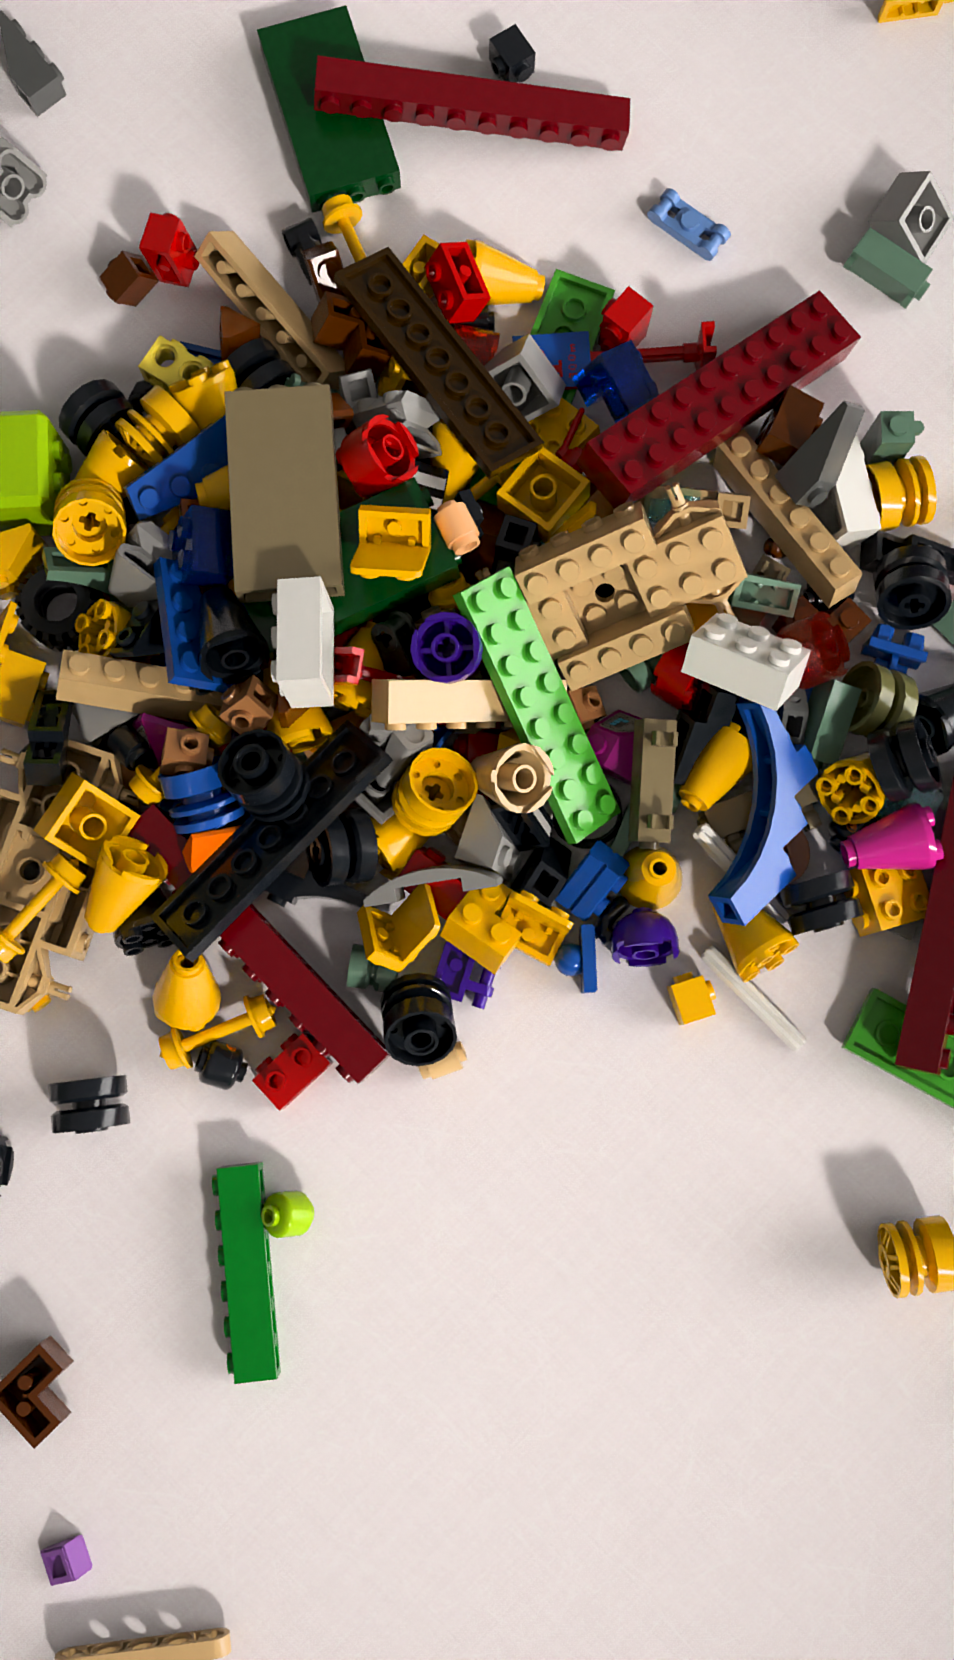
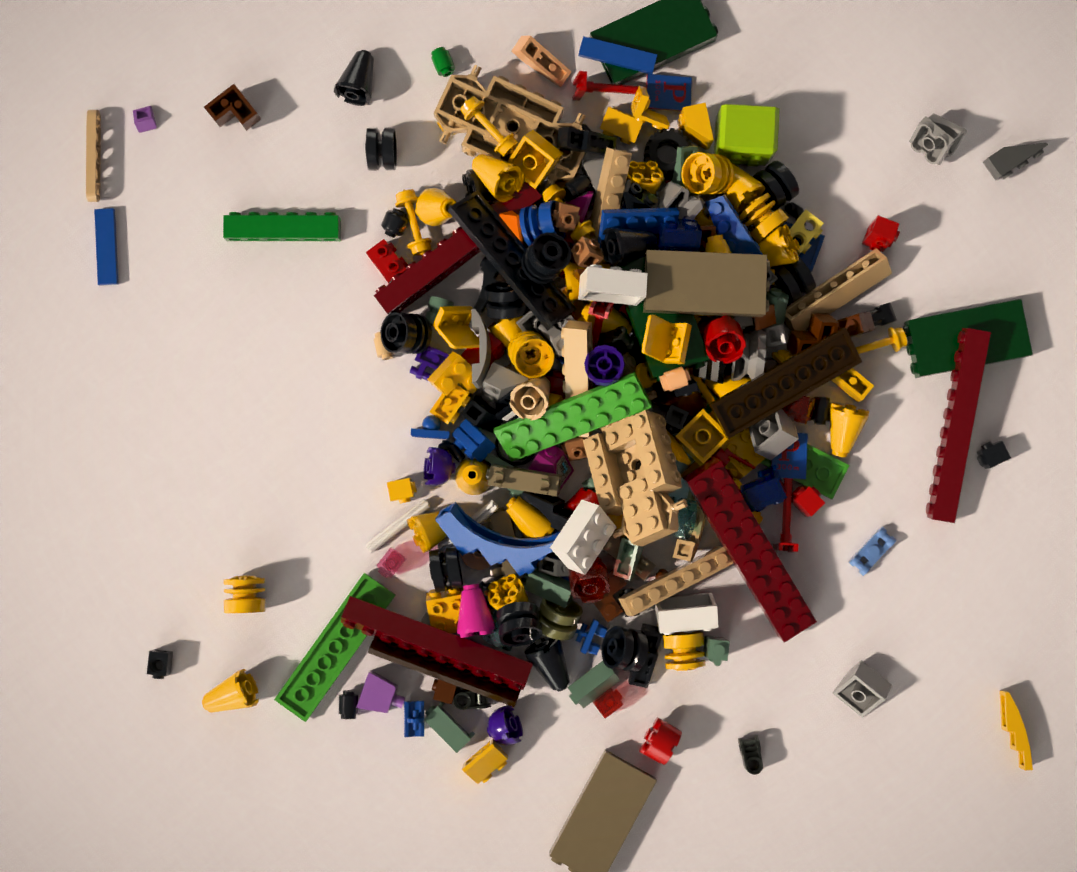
camera: 100 degrees right, 5 degrees up
(128, 278) = (866, 207): reddish brown brick -> none
(235, 331) = (822, 269): dark orange slope -> none
(287, 1214) = (309, 252): lime head -> none
(312, 1603) = (106, 246): none -> blue tile
(457, 282) = (837, 400): red brick -> none
(789, 425) = (728, 589): reddish brown brick -> none
(820, 460) = (702, 600): dark grey slope -> none
(821, 1001) = (390, 563): none -> clear pink brick
(889, 268) = (830, 669): sand green brick -> none

